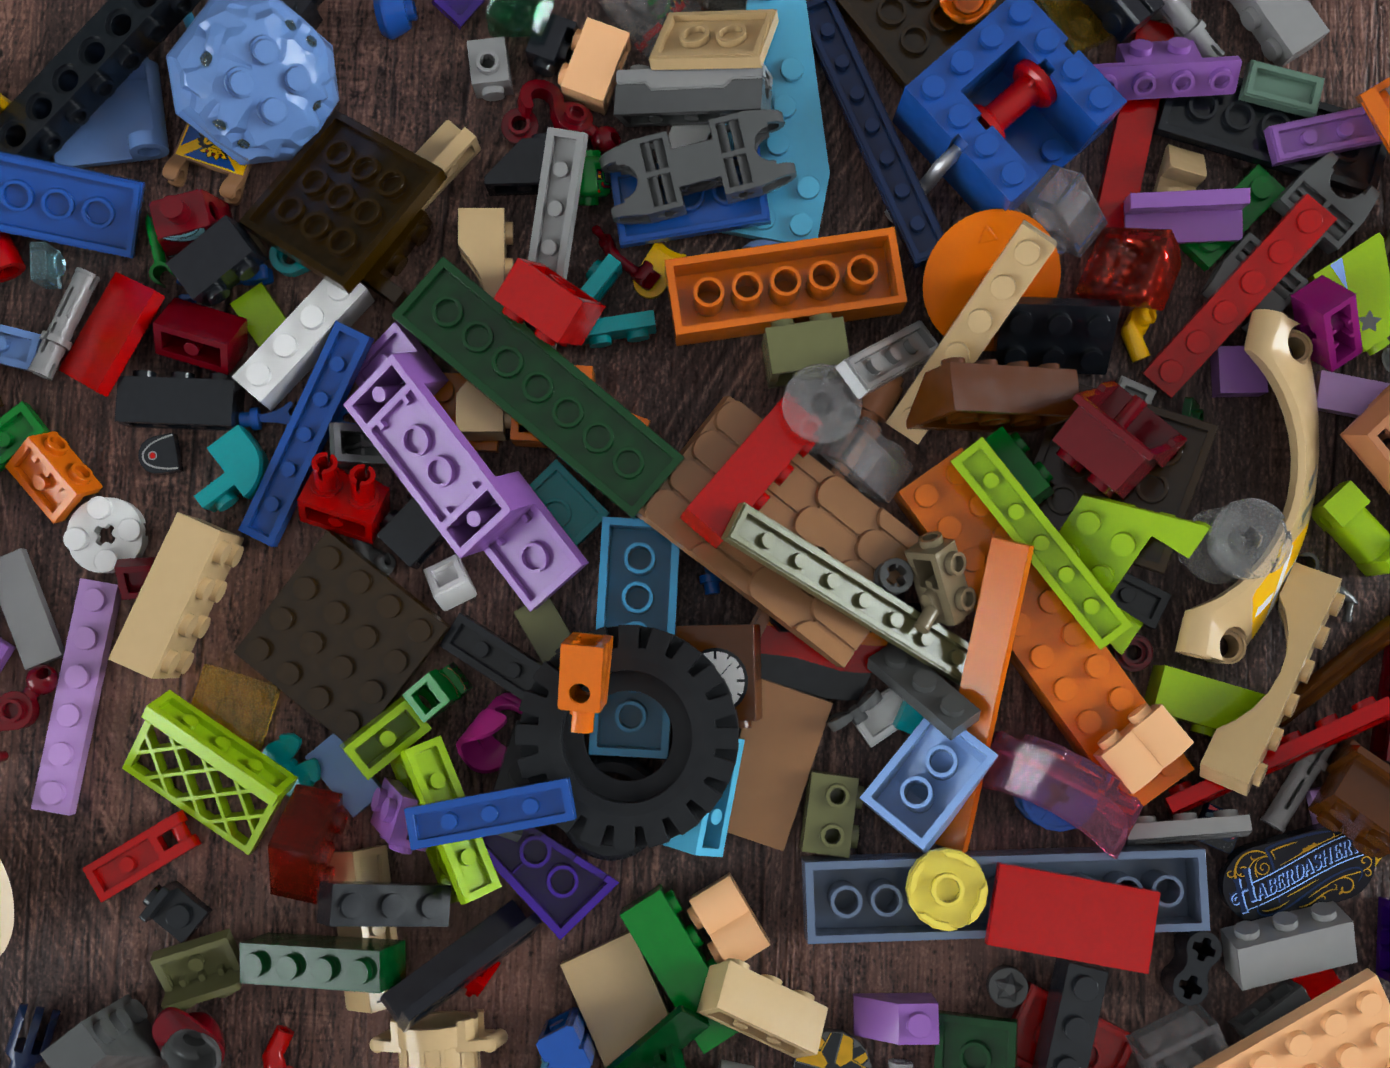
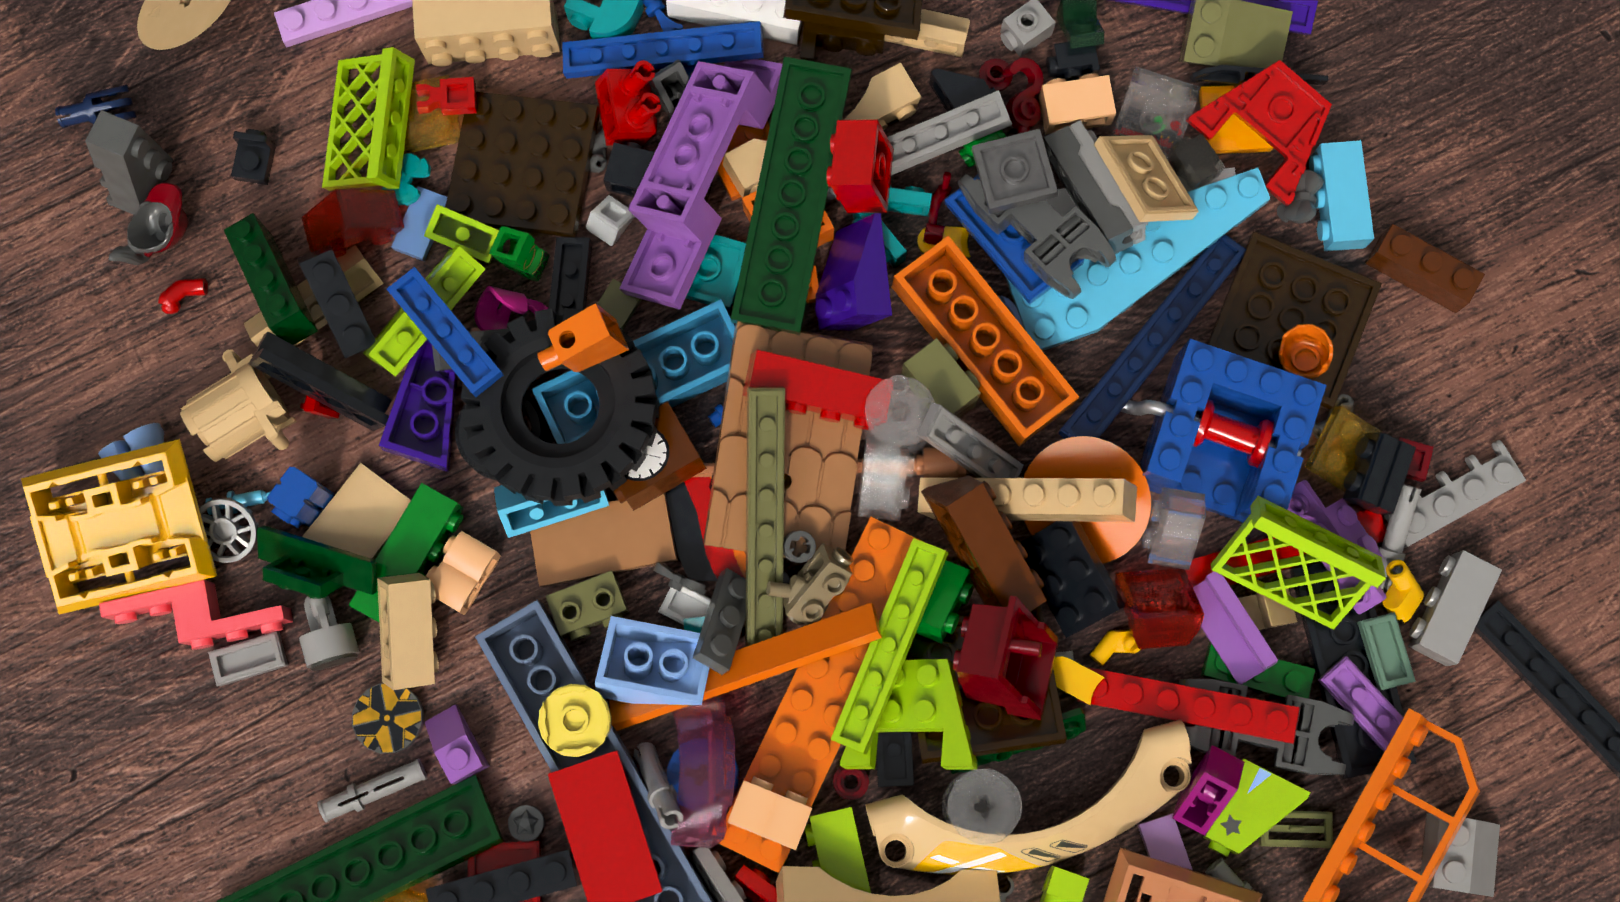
camera: 65 degrees right, 5 degrees down
(140, 856) = (280, 110): red plate -> none
(198, 970) = (217, 196): olive bracket -> none
(233, 671) = (453, 96): none -> red plate
(389, 814) = (423, 263): medium lavender bracket -> none
(641, 157) = (1014, 171): none -> flat silver plate
(651, 373) = (855, 278): none -> dark purple slope
(1063, 842) = (660, 793): none -> light grey pin
(1156, 384) = (1075, 678): none -> yellow piece
(1165, 90) = (1308, 538): none -> lime fence
(1232, 40) = (1404, 593): none -> yellow piece
(1235, 374) = (1124, 740): medium lavender piece -> none

